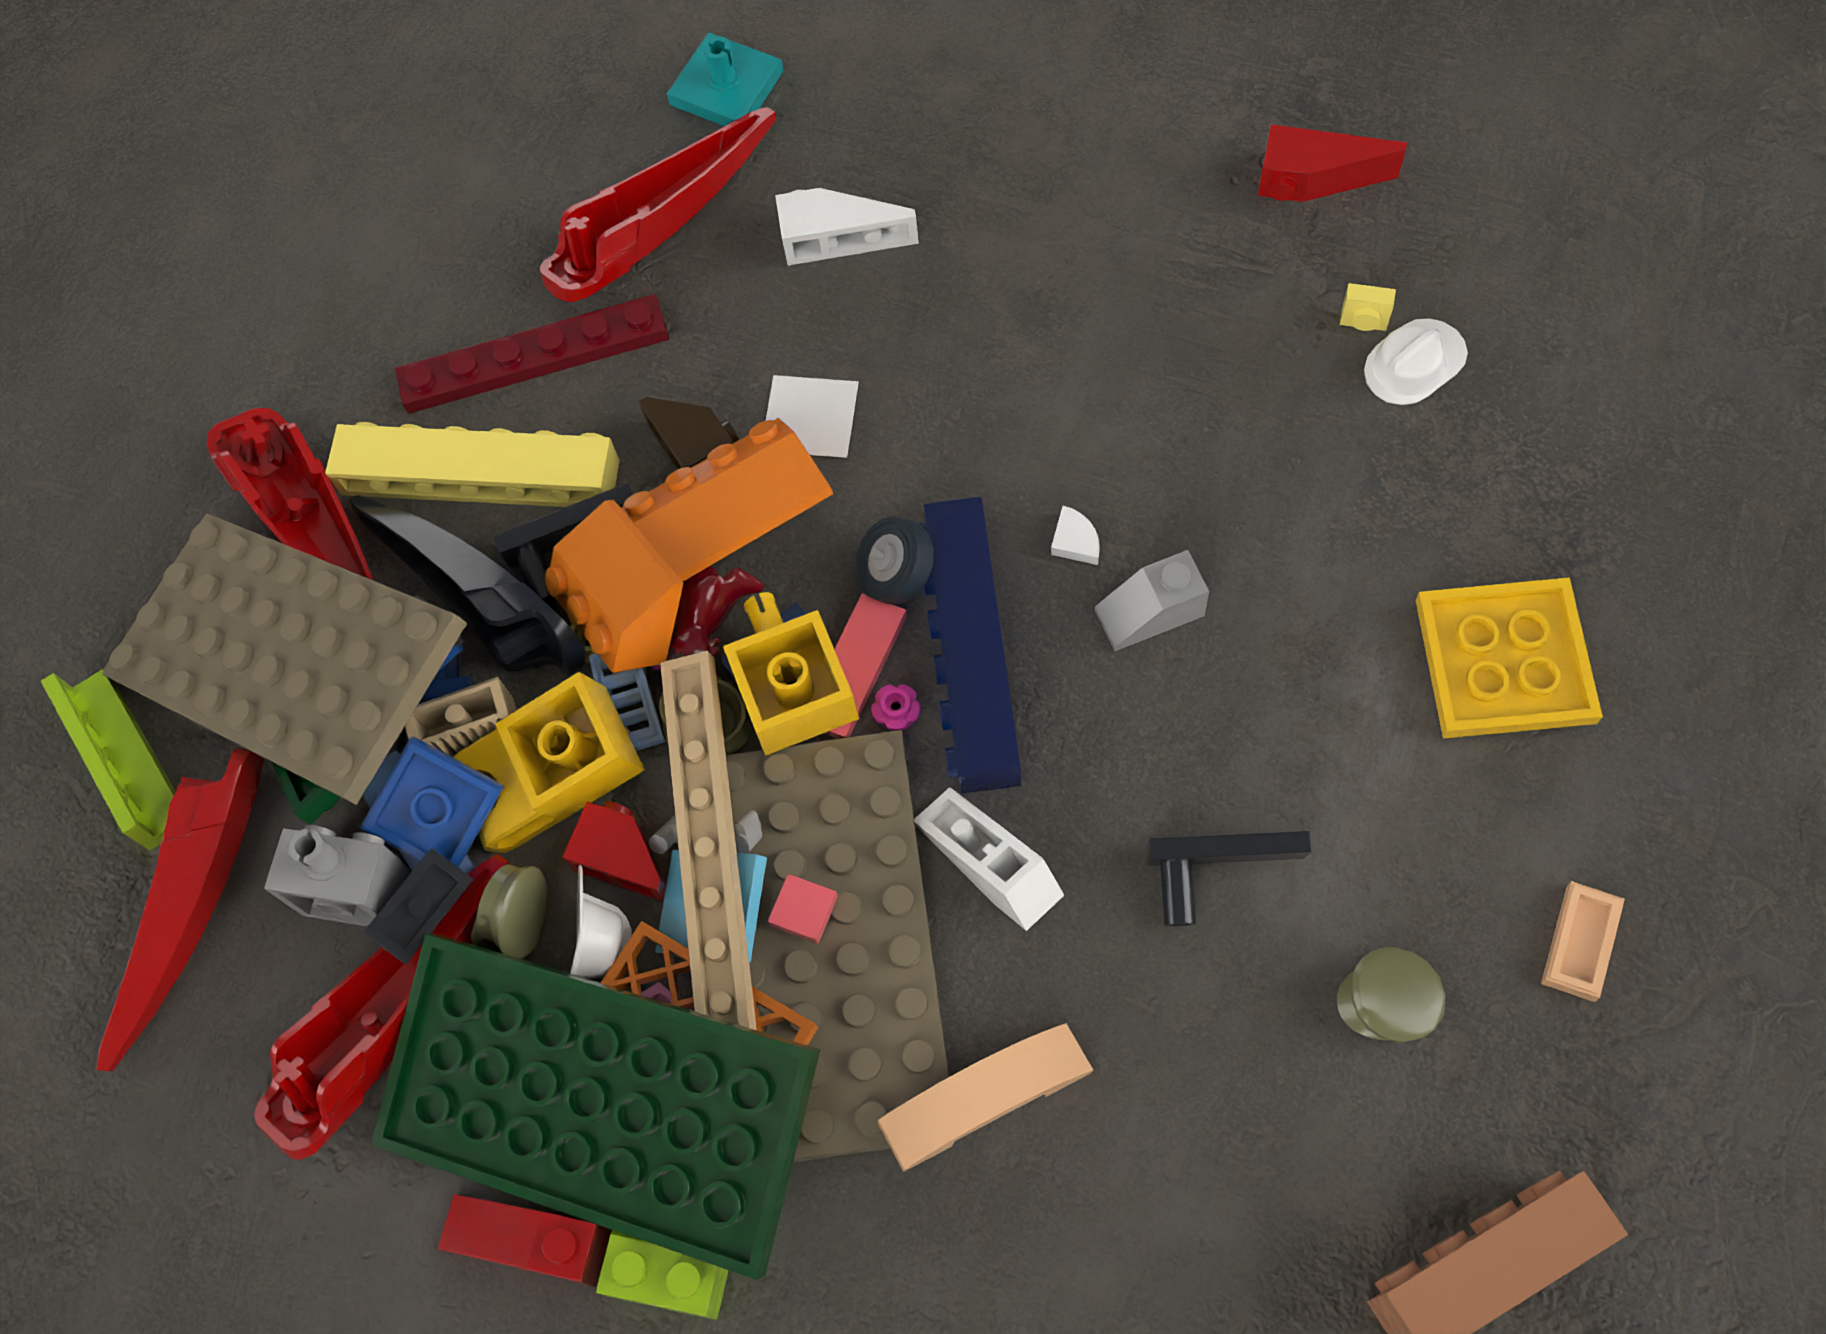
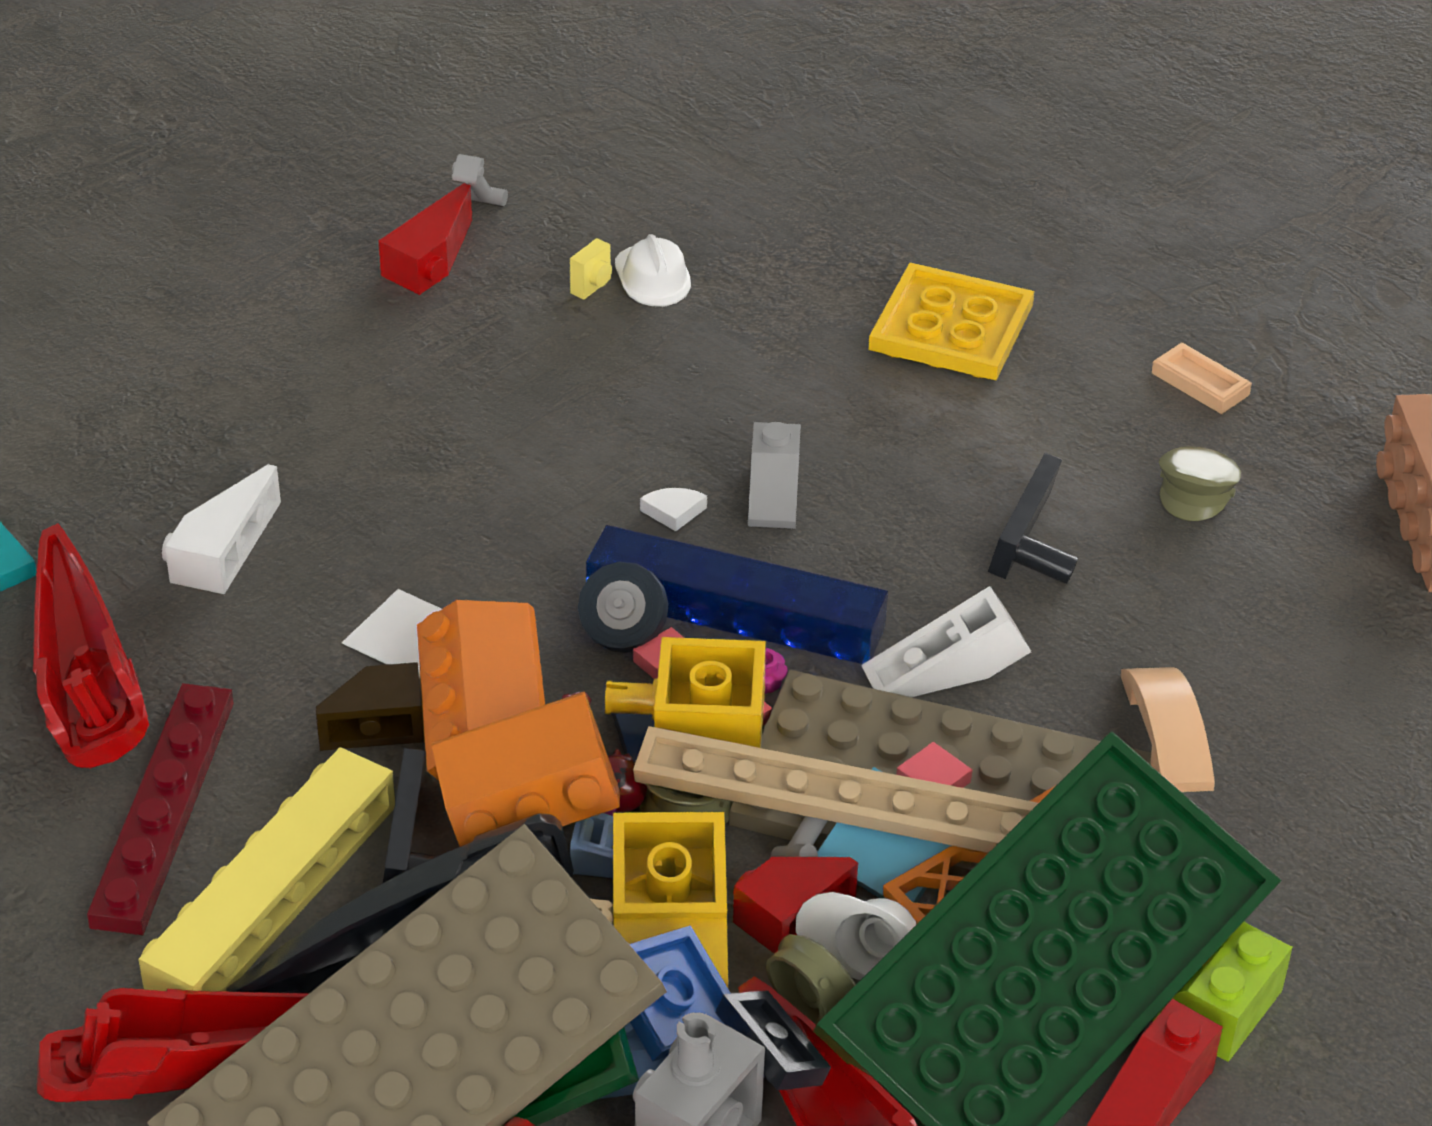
camera: 75 degrees left, 25 degrees down
(1405, 137) = (471, 171): none -> light grey piece

